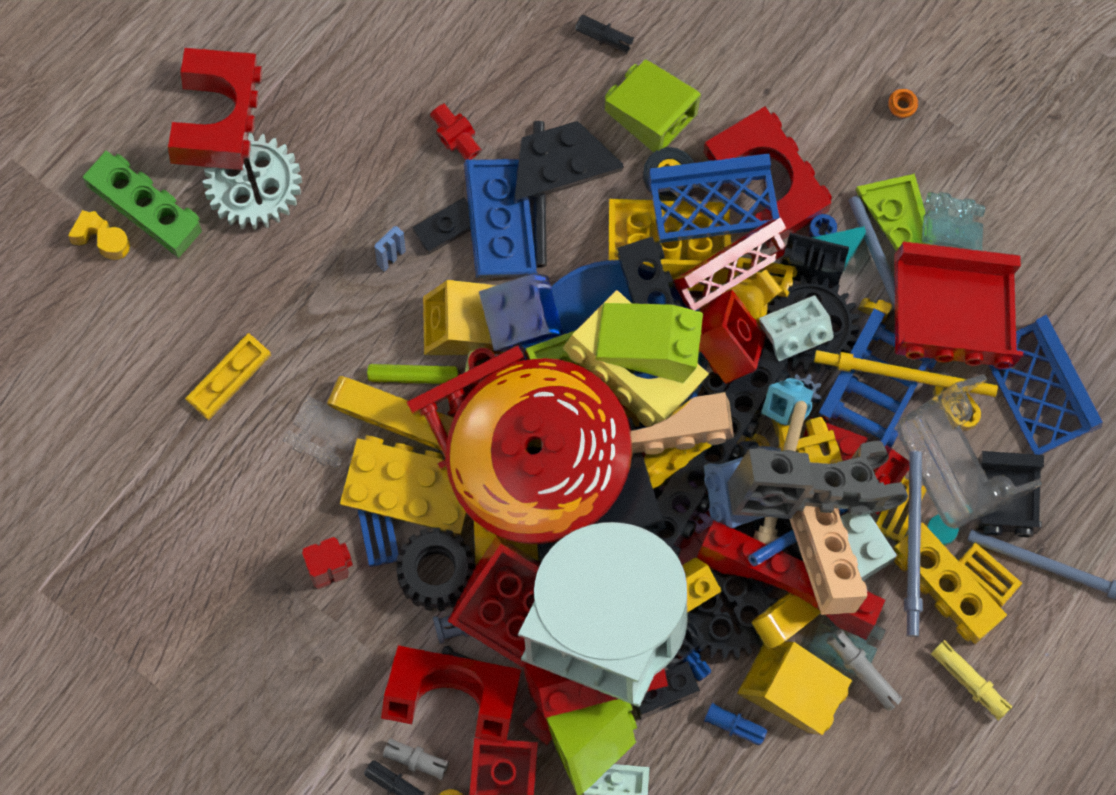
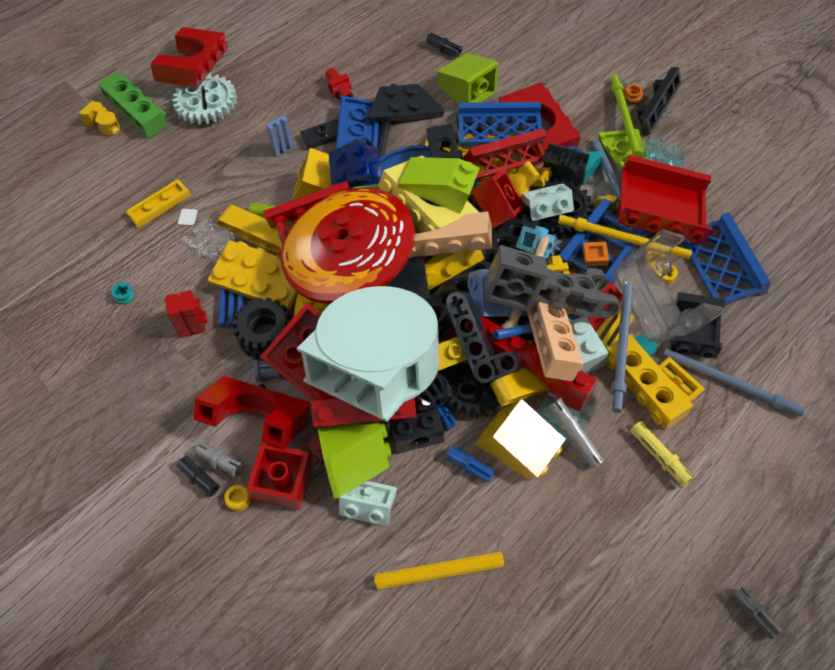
camera: 15 degrees right, 15 degrees down
(220, 523) = (123, 299): none -> teal bush
(276, 393) = (187, 216): none -> white sticker
(732, 564) = (479, 335): none -> black beam
(869, 404) = (595, 254): none -> orange plate
(880, 100) = (617, 91): none -> lime bar
(952, 93) = (663, 93): none -> black hinge

